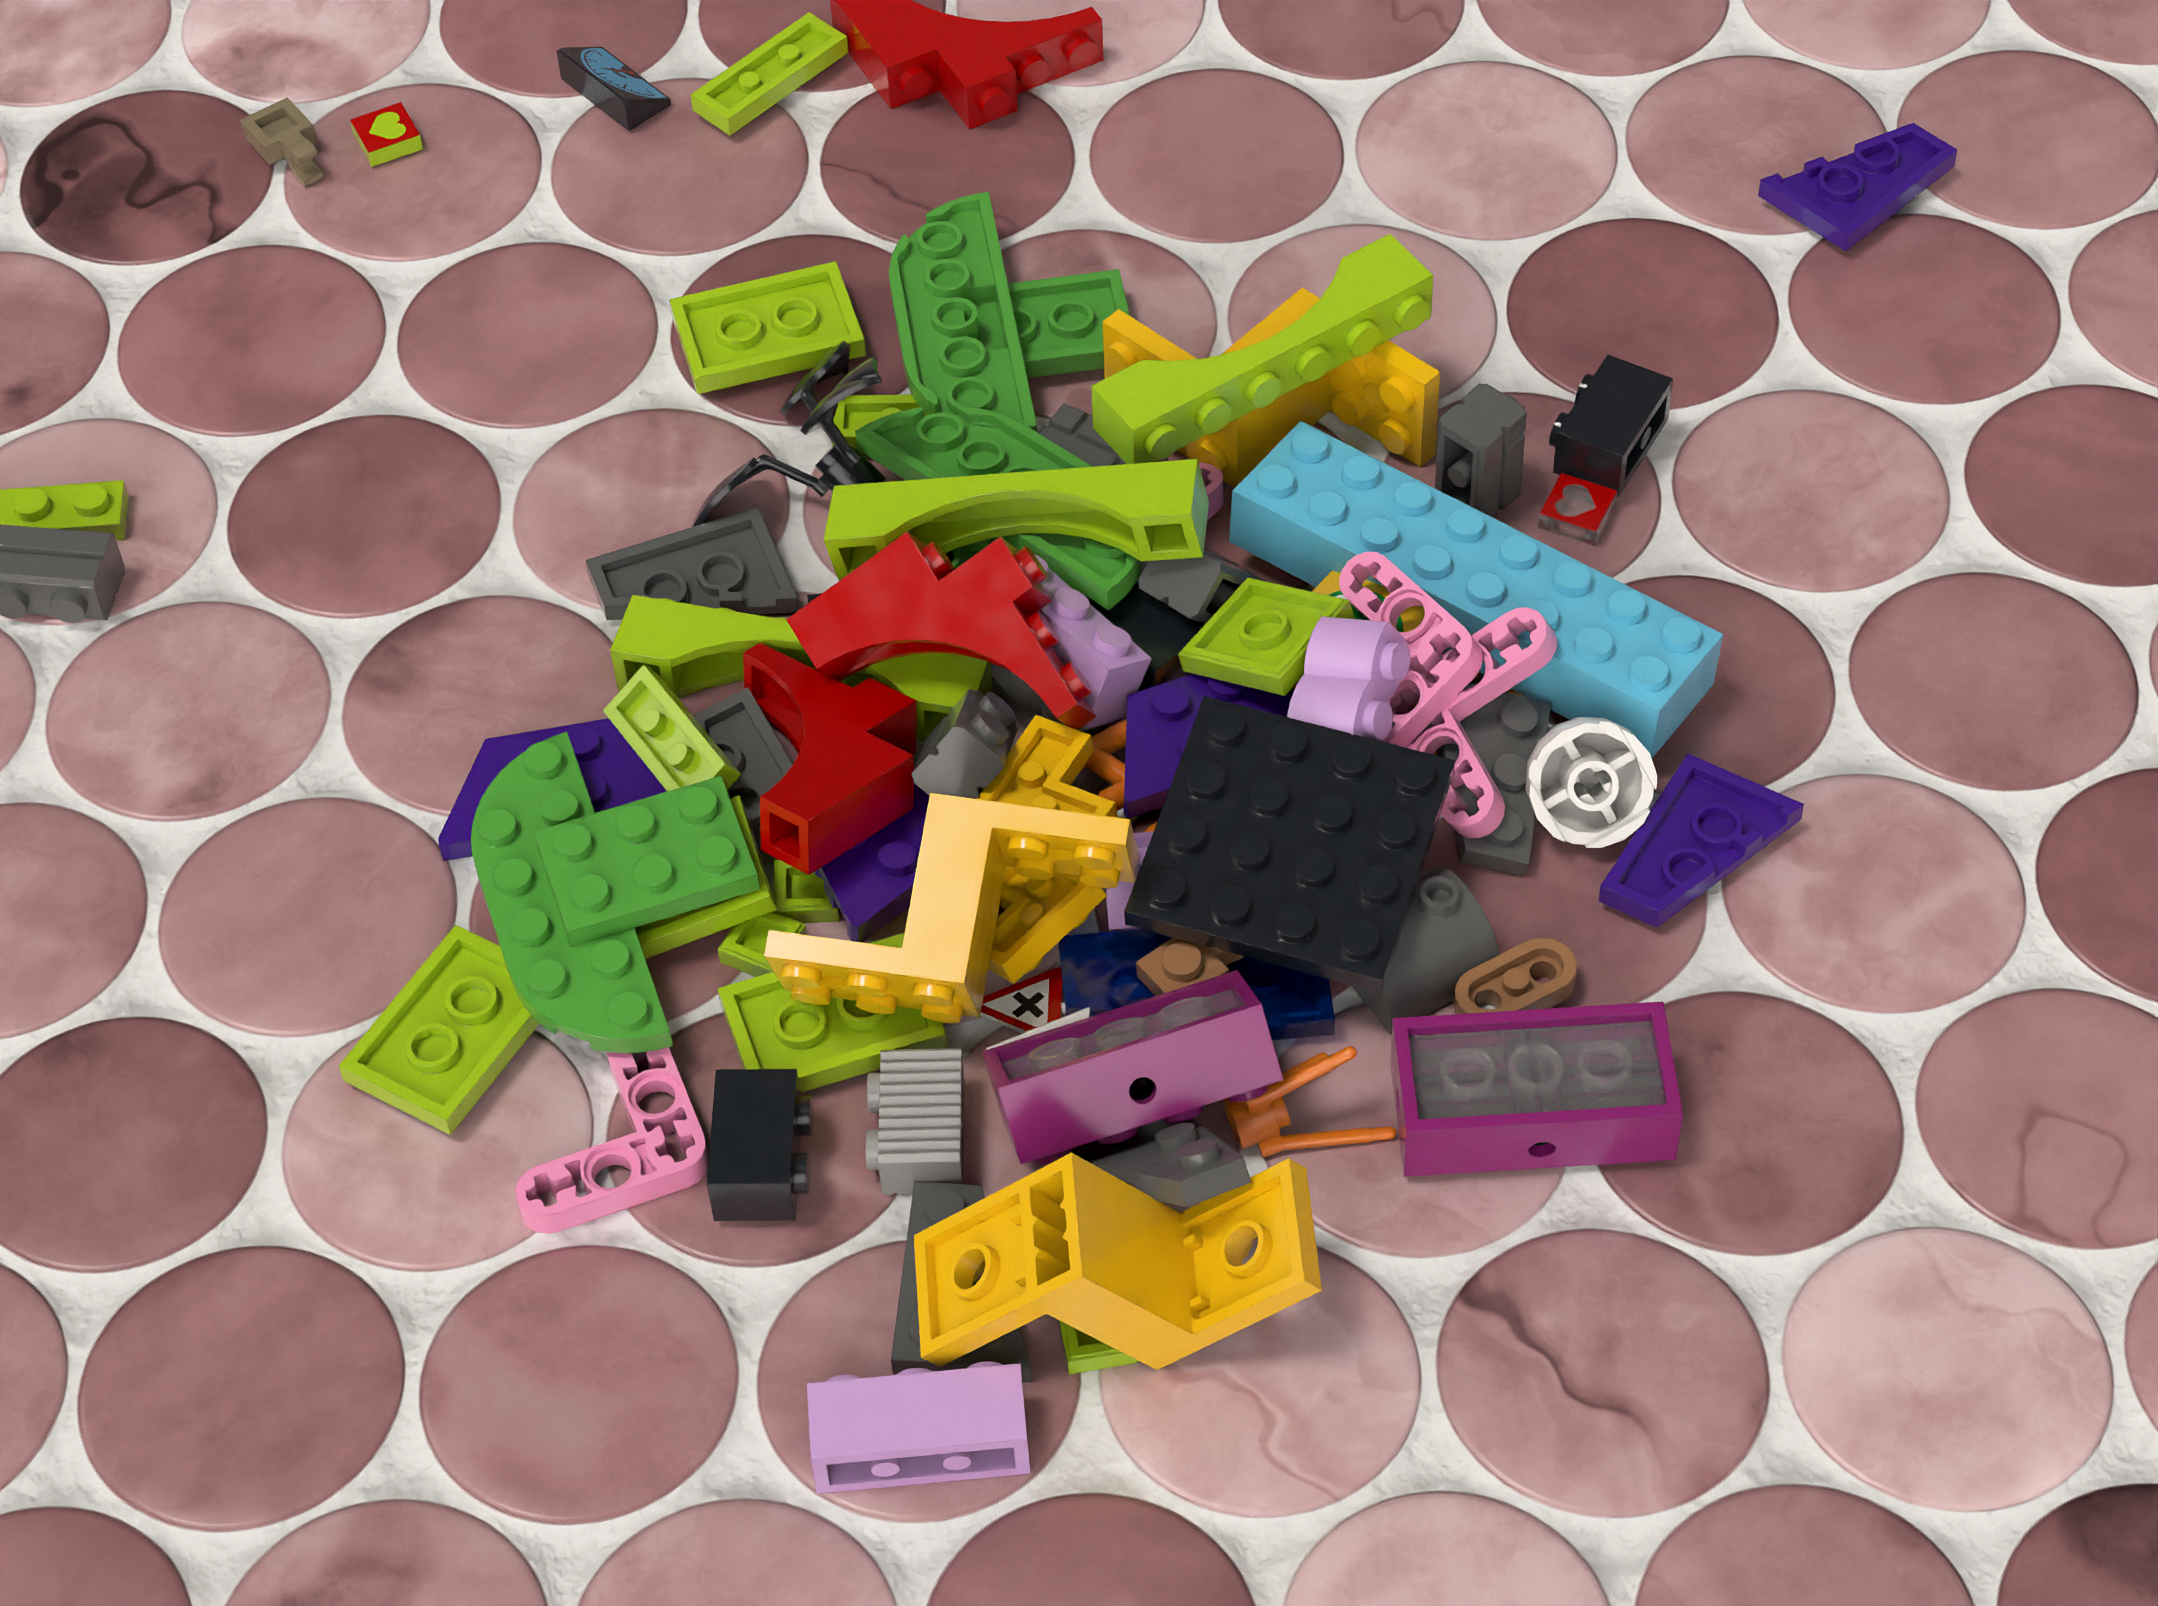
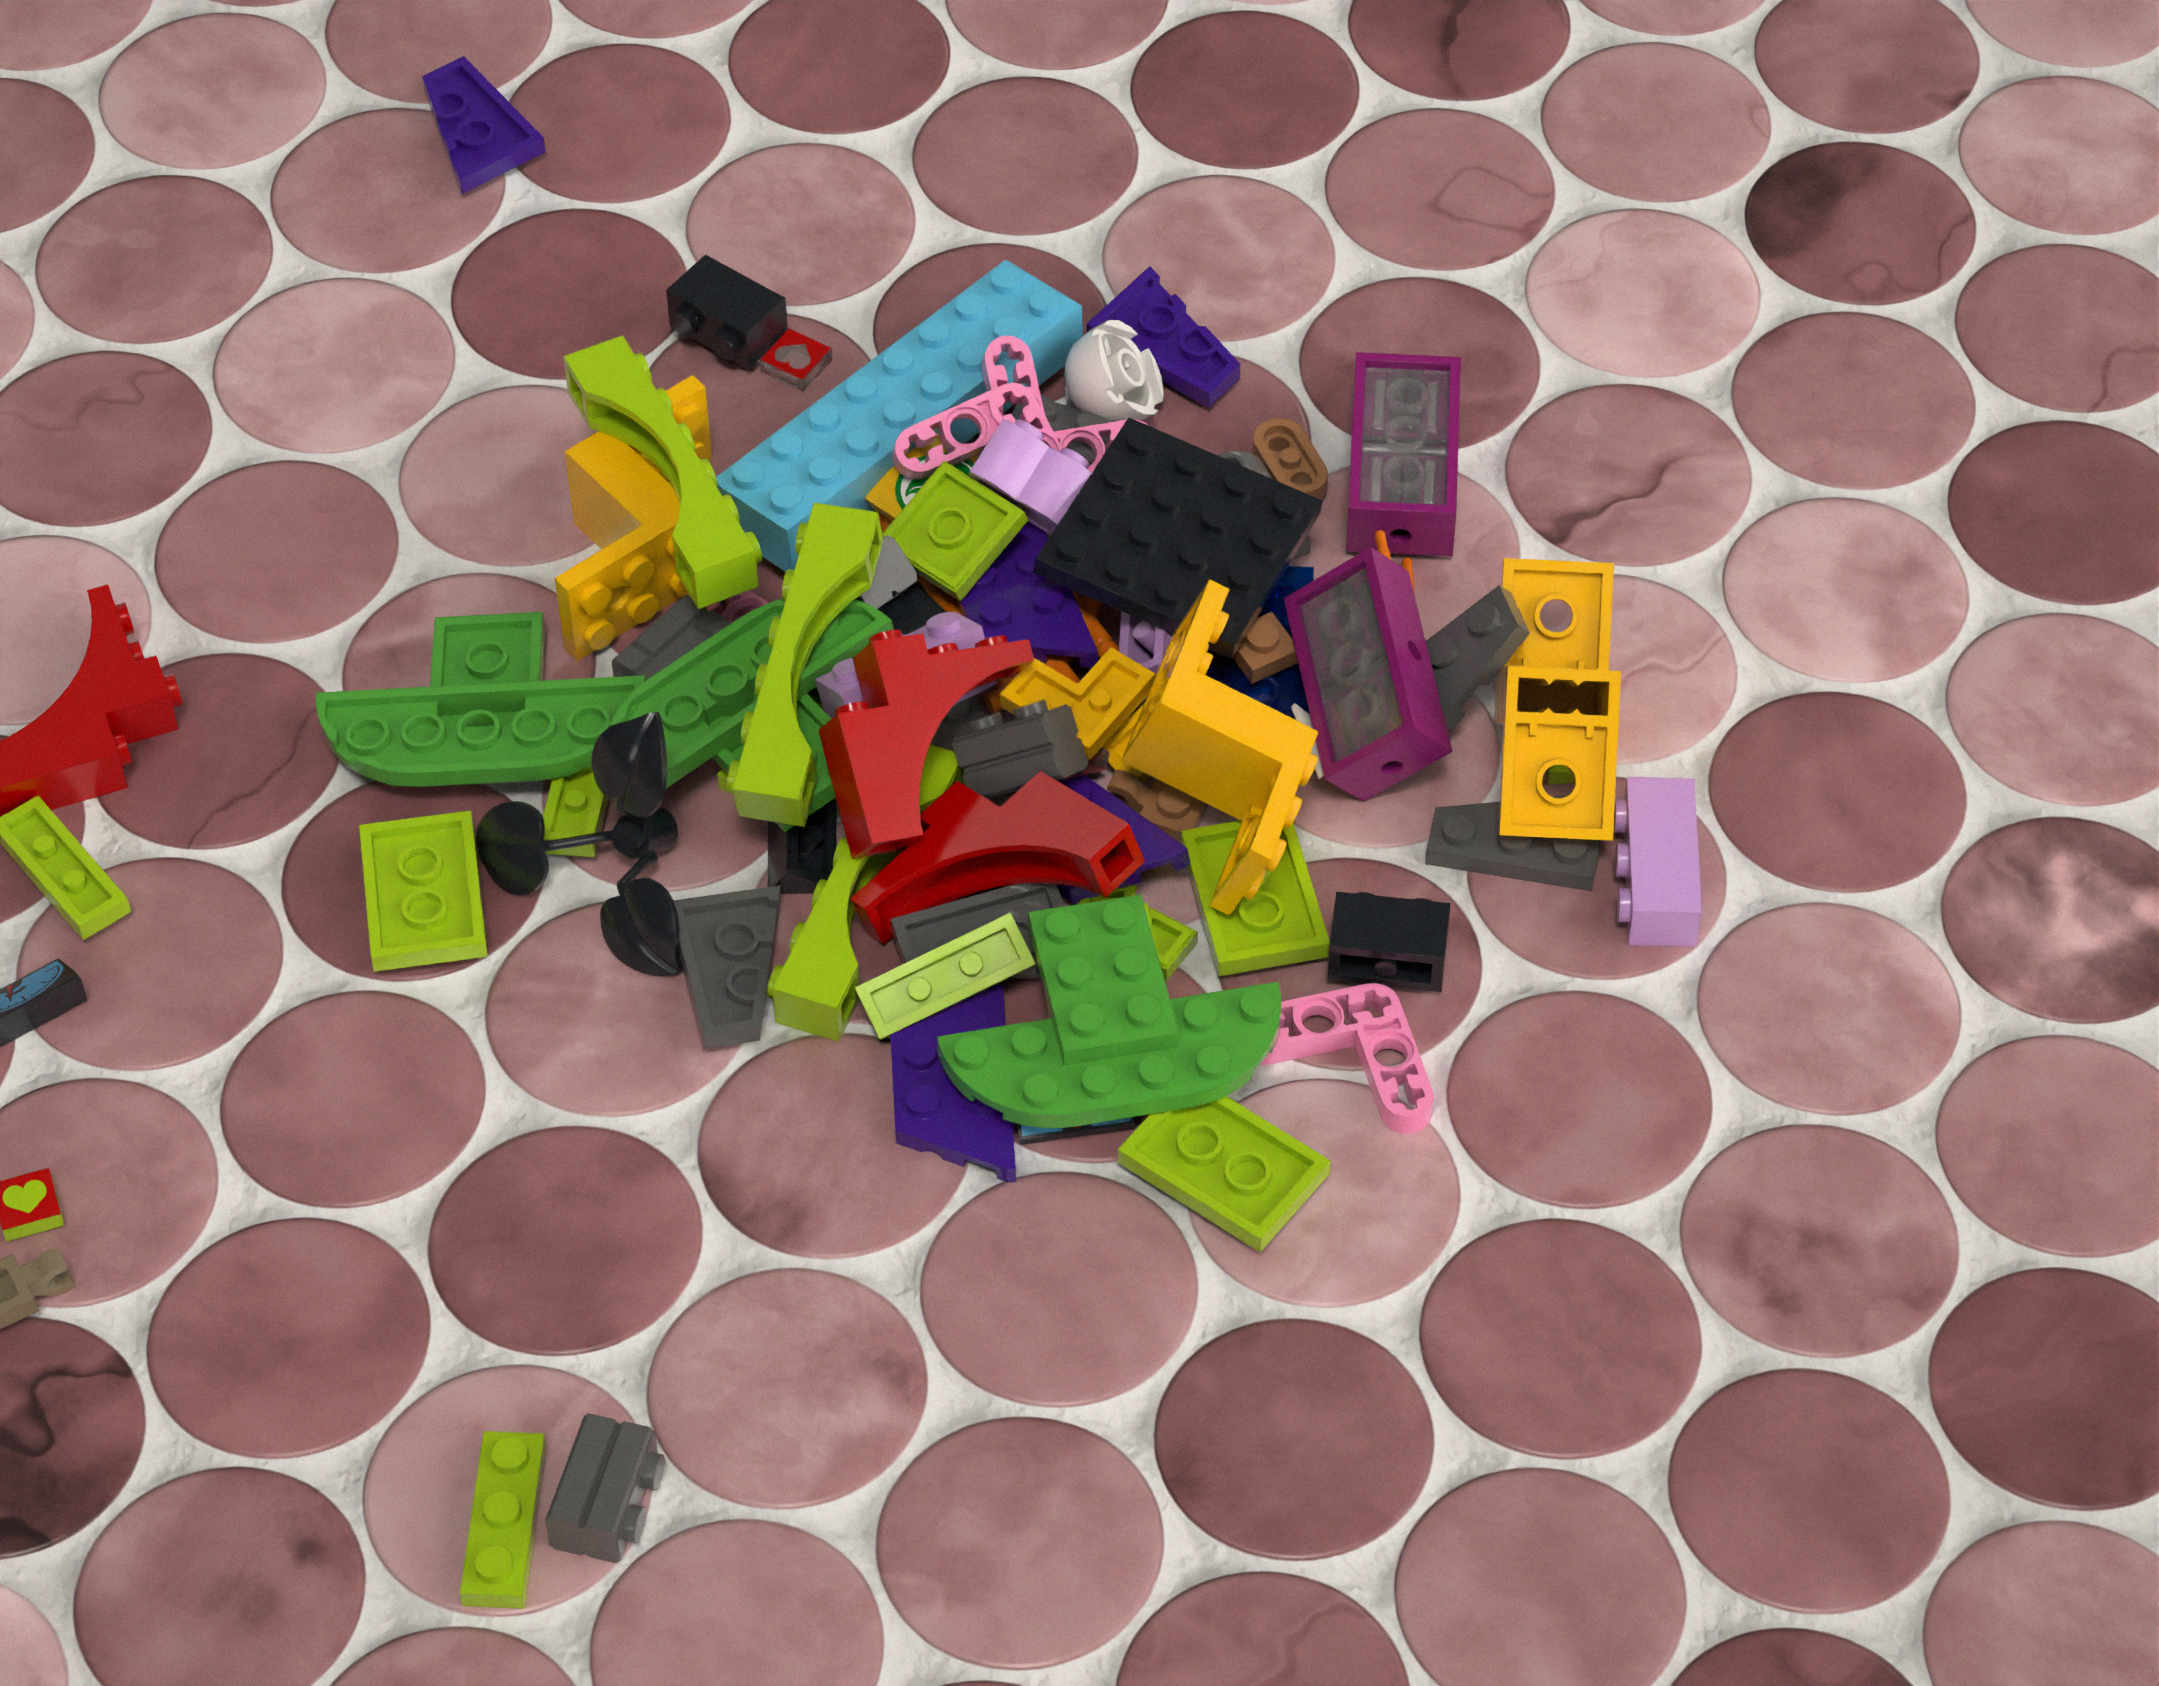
camera: 85 degrees left, 0 degrees up
(919, 1118) = (1370, 837): light grey brick -> none
(1482, 450) = (752, 387): dark grey brick -> none

